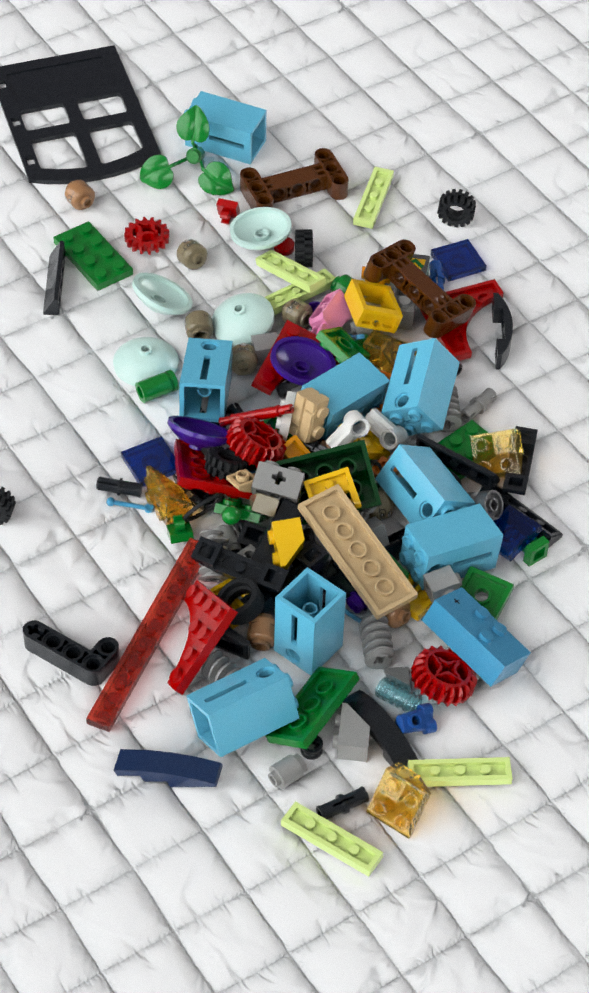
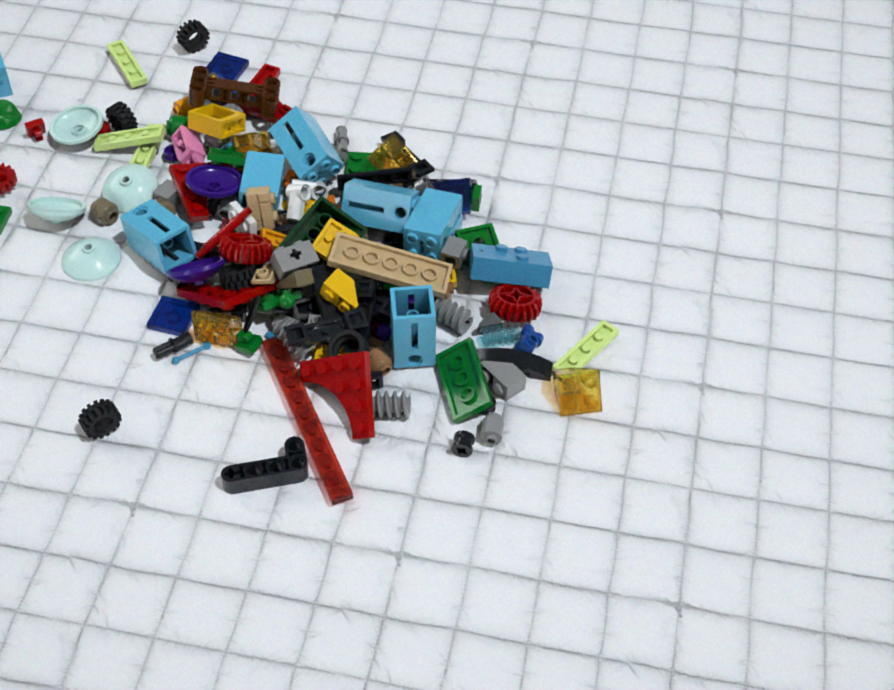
camera: 45 degrees left, 0 degrees up
(157, 386) = (121, 266): green piece -> none
(175, 768) = (419, 486): dark blue slope -> none
(192, 254) = (44, 171): dark tan head -> none
(243, 706) = (428, 409): medium azure brick -> none
(247, 762) = (463, 443): none -> black wheel
(297, 312) = (162, 159): dark tan head -> none
(322, 175) = (74, 71): reddish brown beam -> none
(332, 839) = (564, 446): yellowish green plate -> none
(343, 803) = (548, 412): black pin -> none
(502, 315) = (294, 80): black slope -> none

